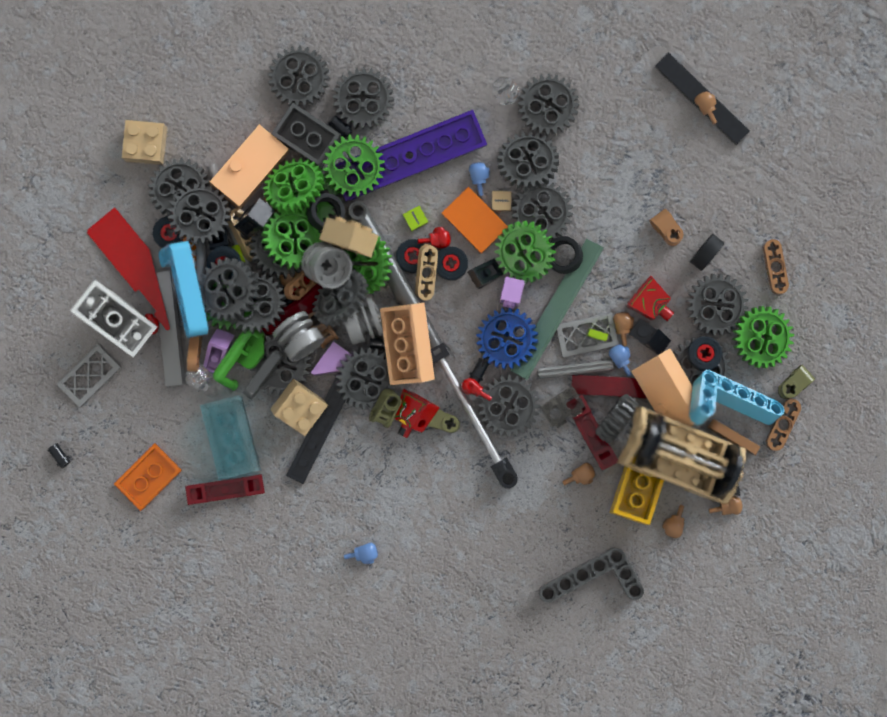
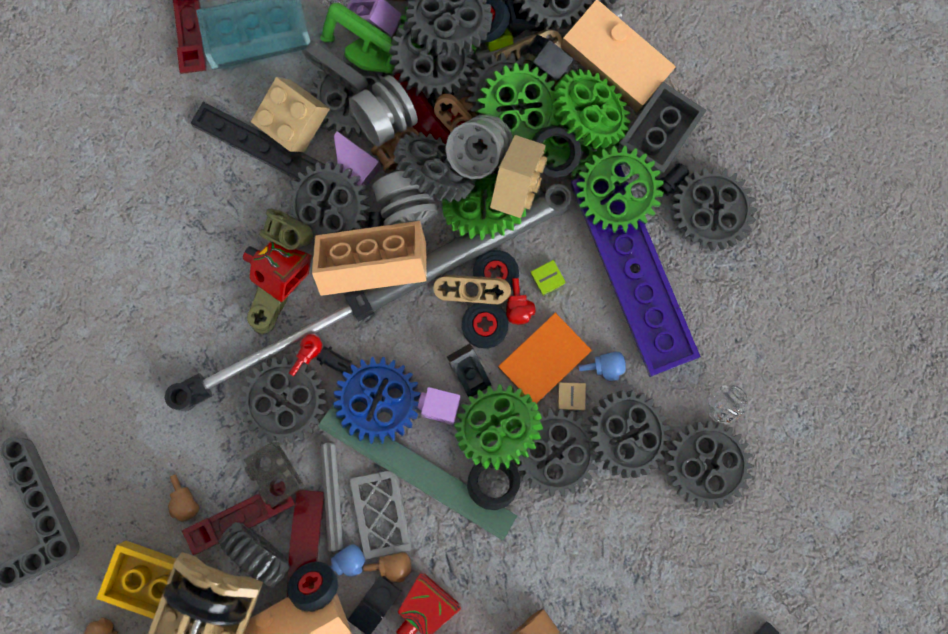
camera: 85 degrees right, 5 degrees down
(282, 72) = (747, 103): dark grey gear -> none
(365, 553) = (92, 202): medium blue piece -> none
(597, 335) = (377, 528): lime tile -> none
(646, 373) = (318, 597): none -> black bush

